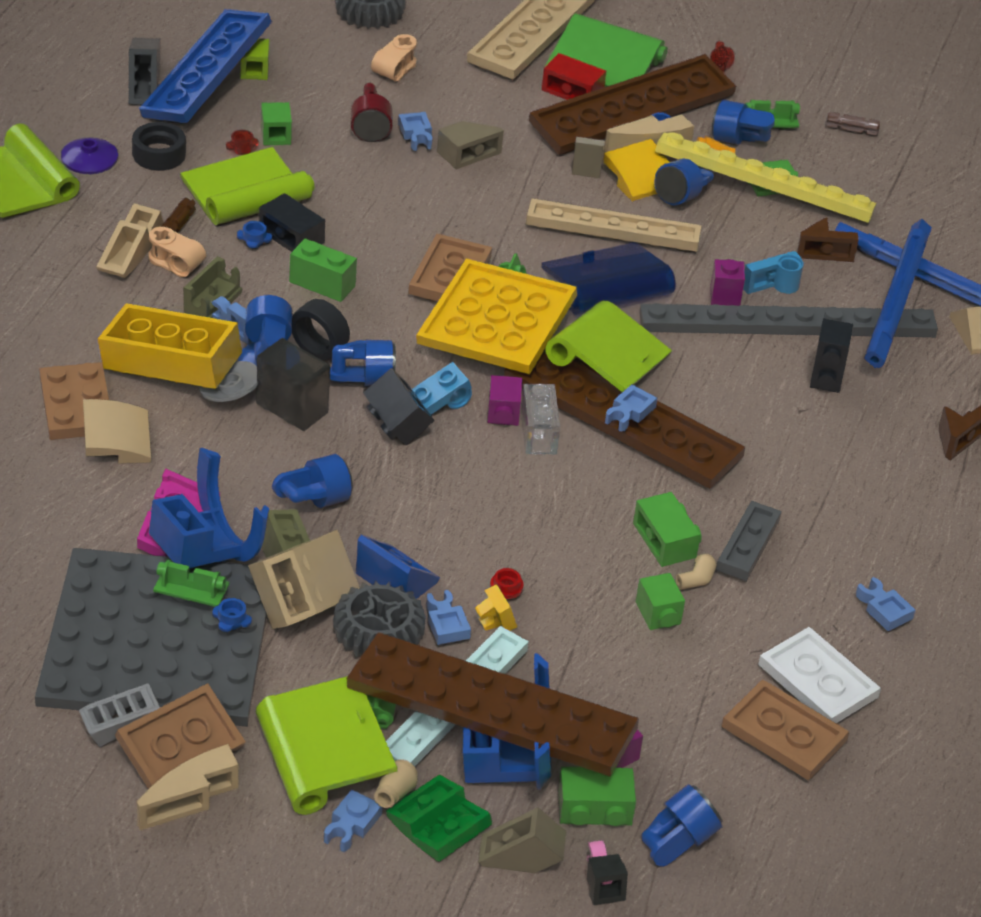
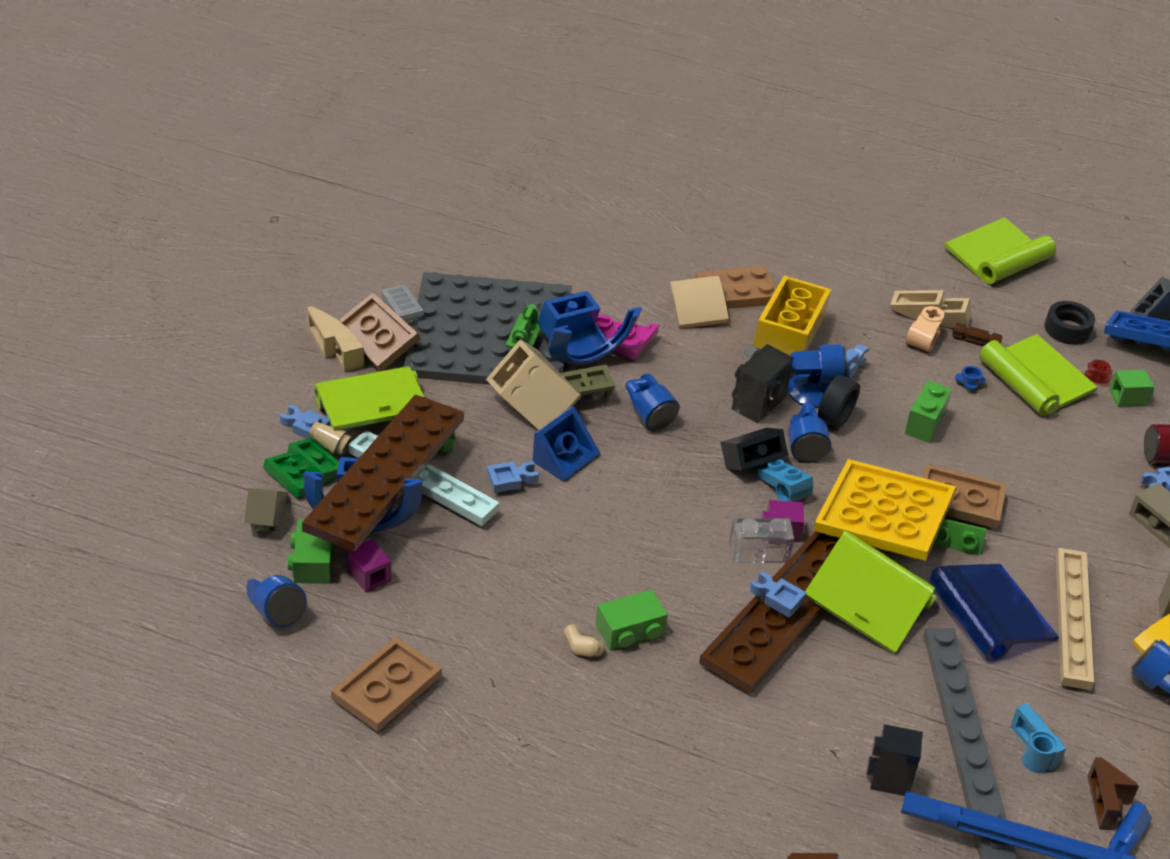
camera: 90 degrees right, 0 degrees up
(89, 155) = (1047, 290): dark purple dish -> none
(210, 285) = (885, 350): olive hinge -> none
(232, 614) = (494, 350): blue plate -> none
(291, 222) = (988, 396): black brick -> none
(376, 610) = (502, 435): dark grey gear -> none
(495, 611) = (520, 504): yellow tile -> none
(509, 582) = (556, 515): red plate -> none
(605, 875) = (229, 550): pearl dark grey piece -> none
(660, 601) = (537, 608): bright green brick -> none
(727, 282) = (1003, 694): magenta brick -> none
(748, 540) = (626, 681): dark grey plate -> none
(819, 675) = (451, 715): white plate -> none
(885, 607) = (546, 780): medium blue plate -> none

